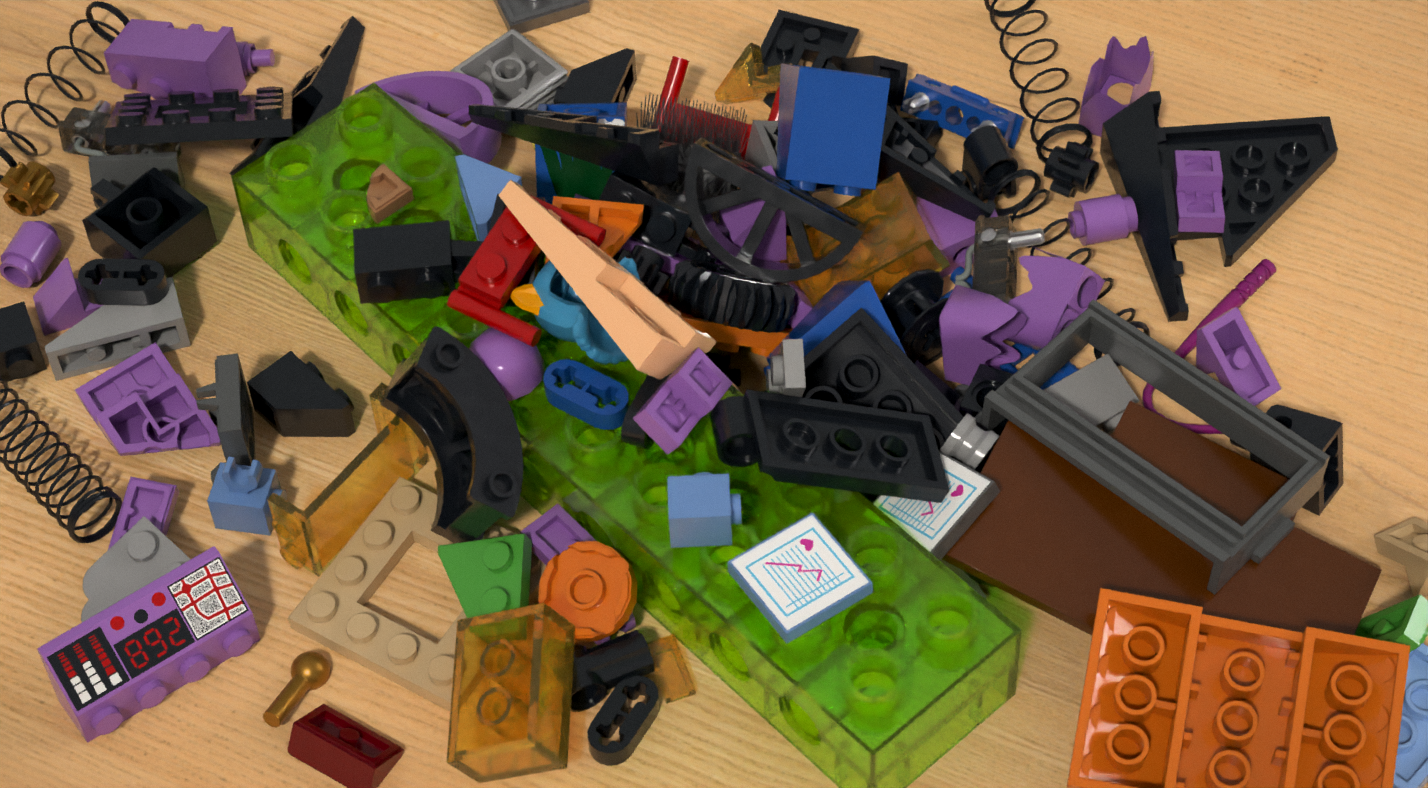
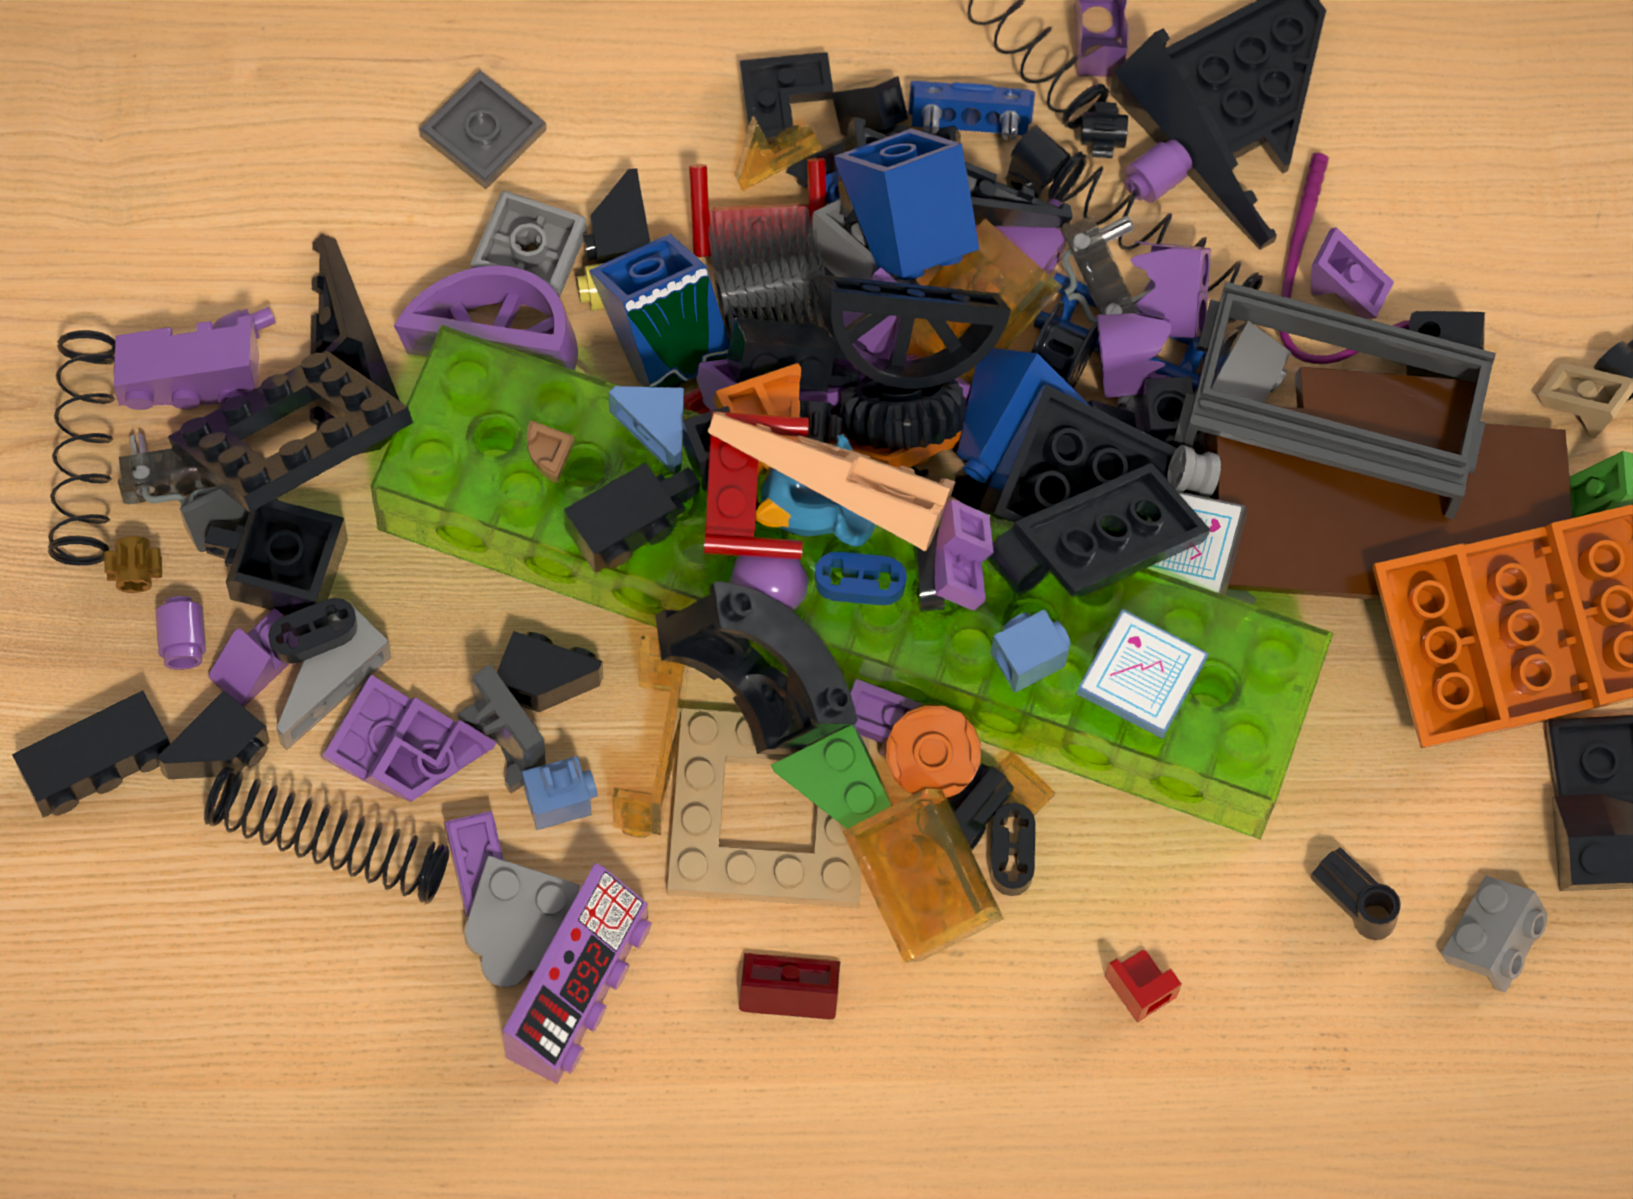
camera: 35 degrees left, 15 degrees up
(307, 672) = (713, 930): pearl gold bar -> none
(614, 147) = (677, 309): black wedge -> none
(787, 369) = (1030, 486): light grey plate -> none
(1198, 191) = (1232, 108): medium lavender slope -> none

